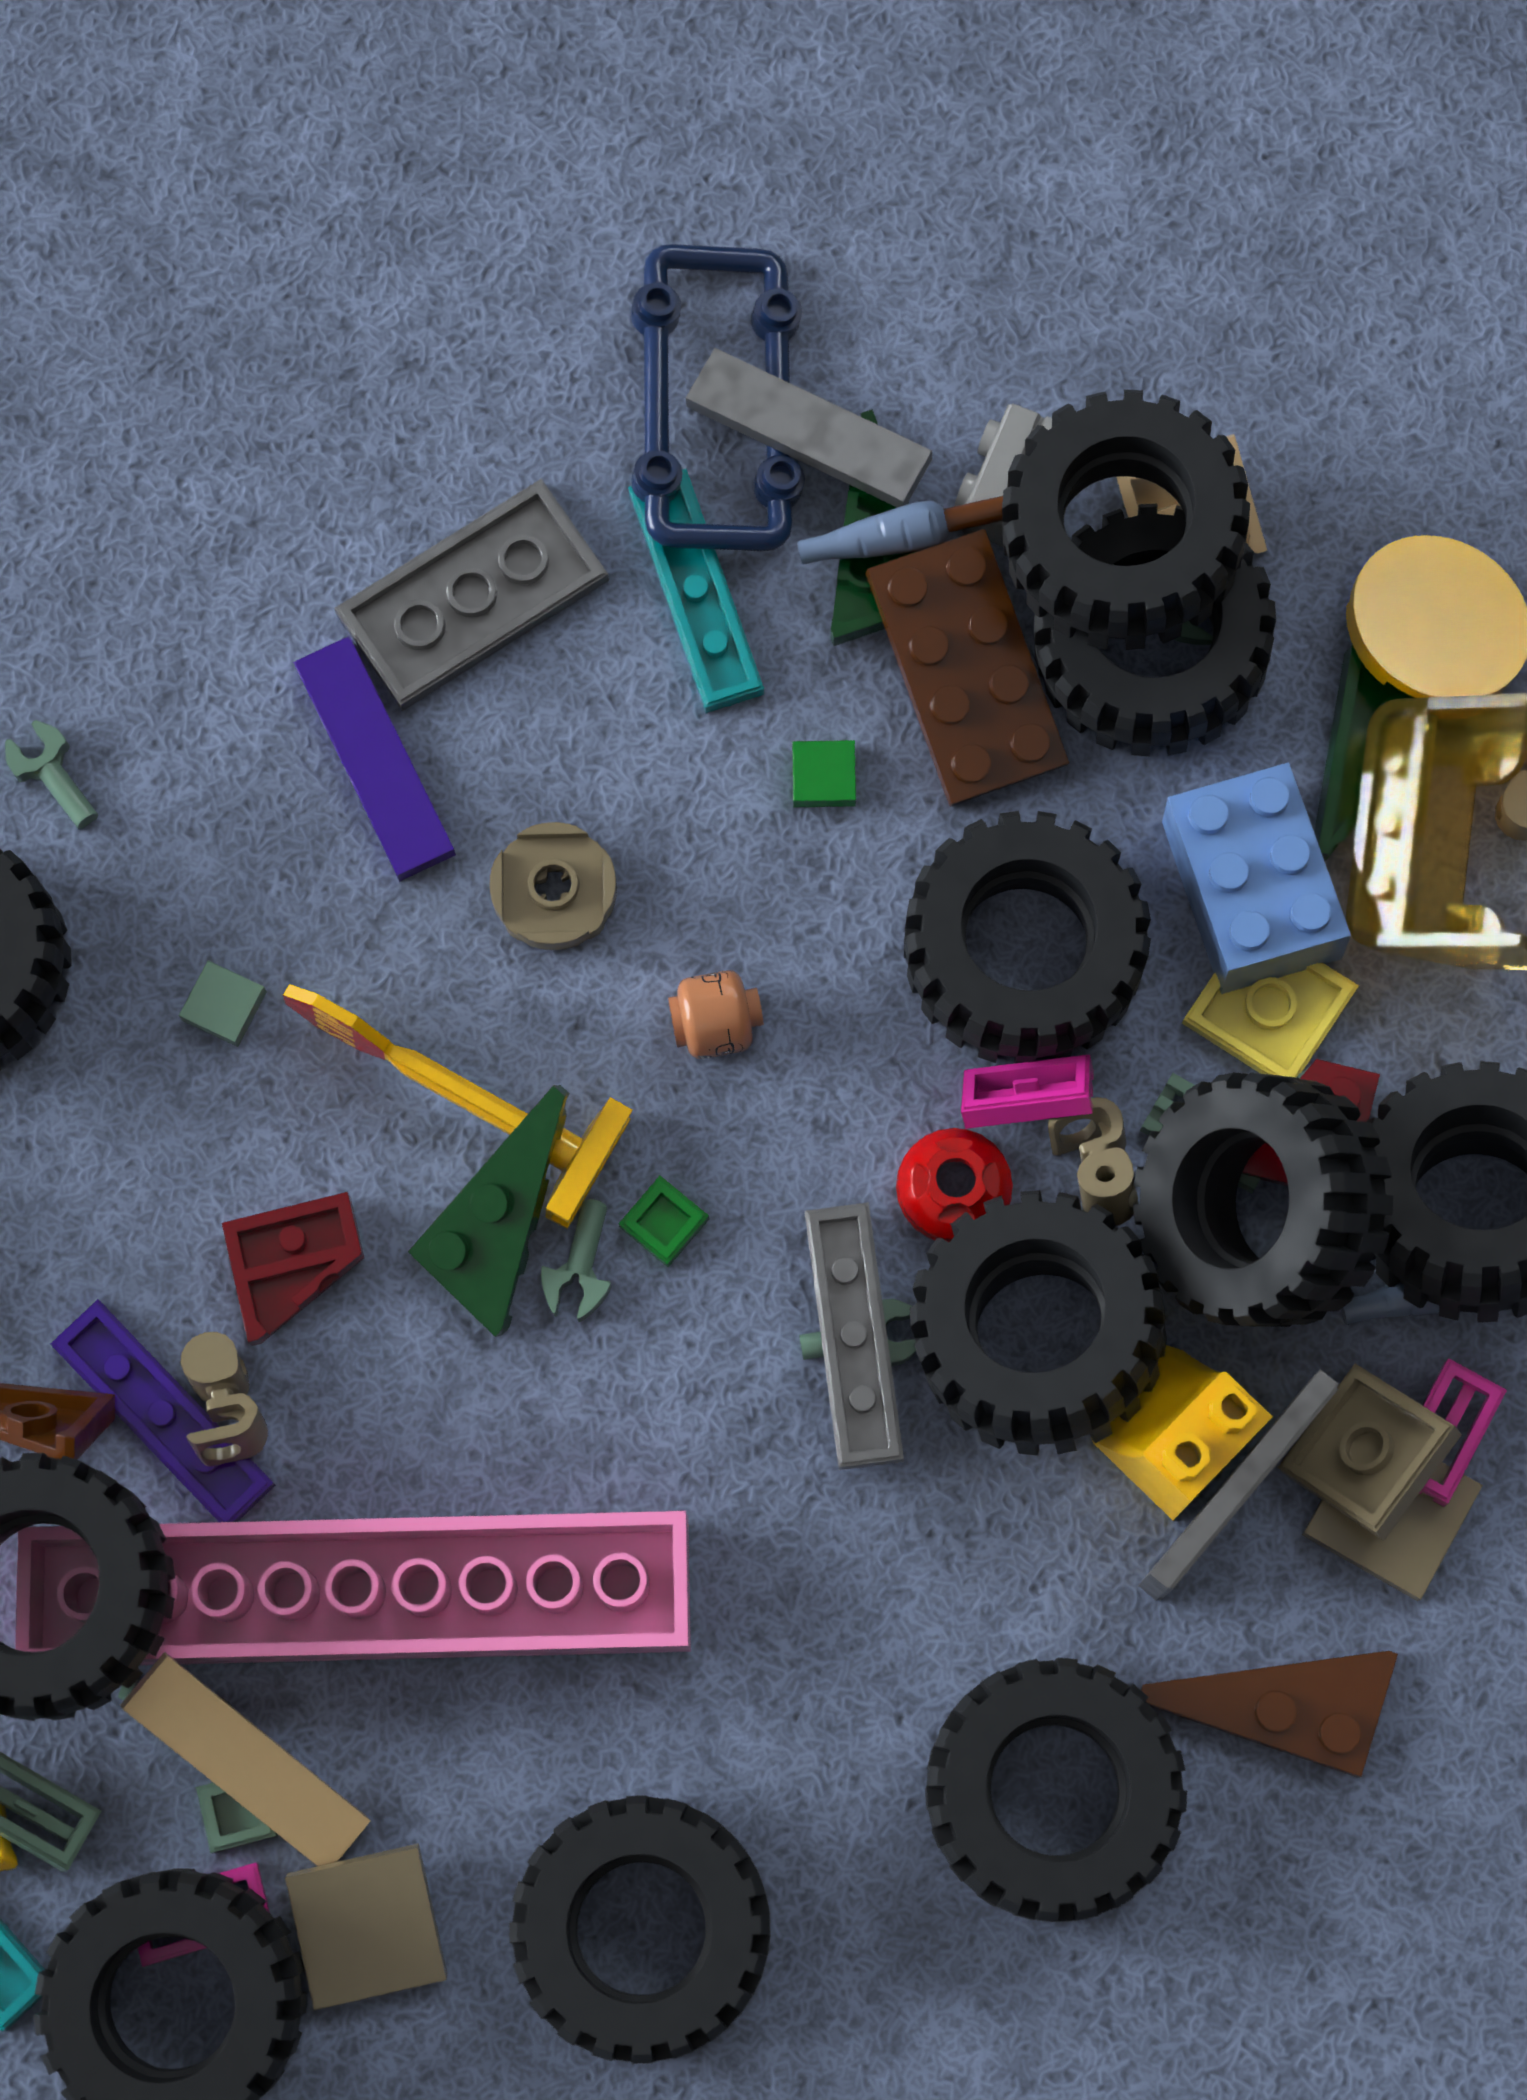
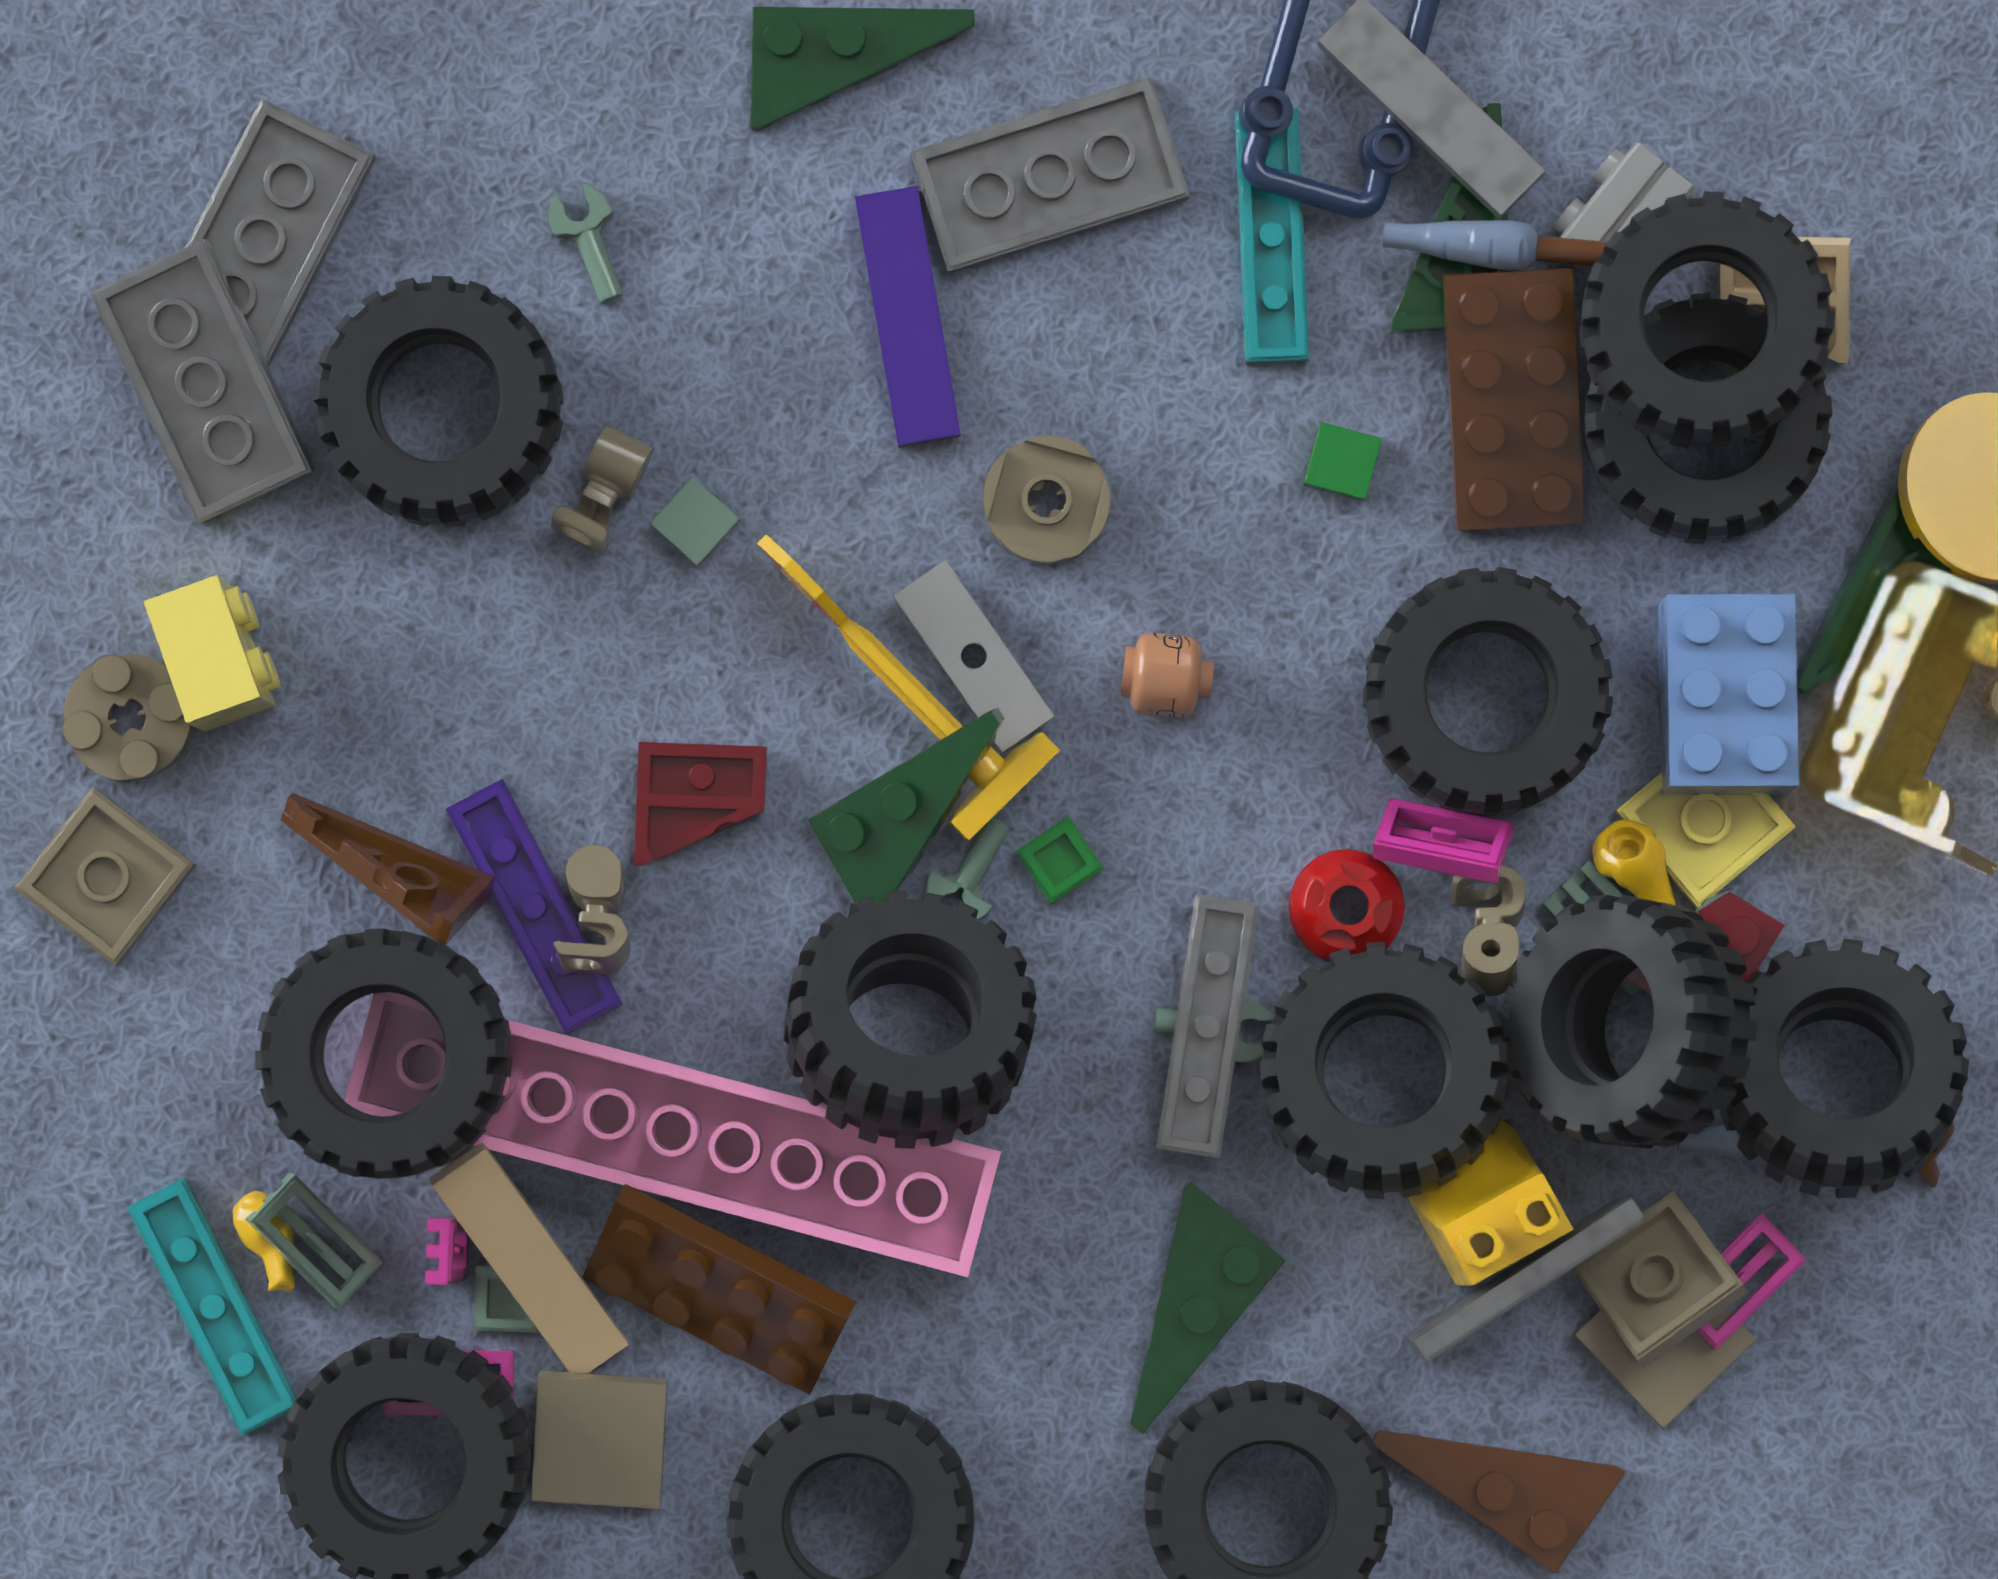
camera: 15 degrees right, 10 degrees up
(130, 975) = (612, 473): none -> dark tan leg
(152, 1774) = (447, 1251): none -> dark pink tile
(225, 543) = (818, 51): none -> dark green wing
(443, 1735) = (718, 1289): none -> reddish brown plate
(498, 1025) = (953, 622): none -> light grey tile
(562, 1475) = (923, 947): none -> black tyre
(929, 1590) = (1207, 1285): none -> dark green wing
(1209, 1051) = (1634, 859): none -> yellow animal

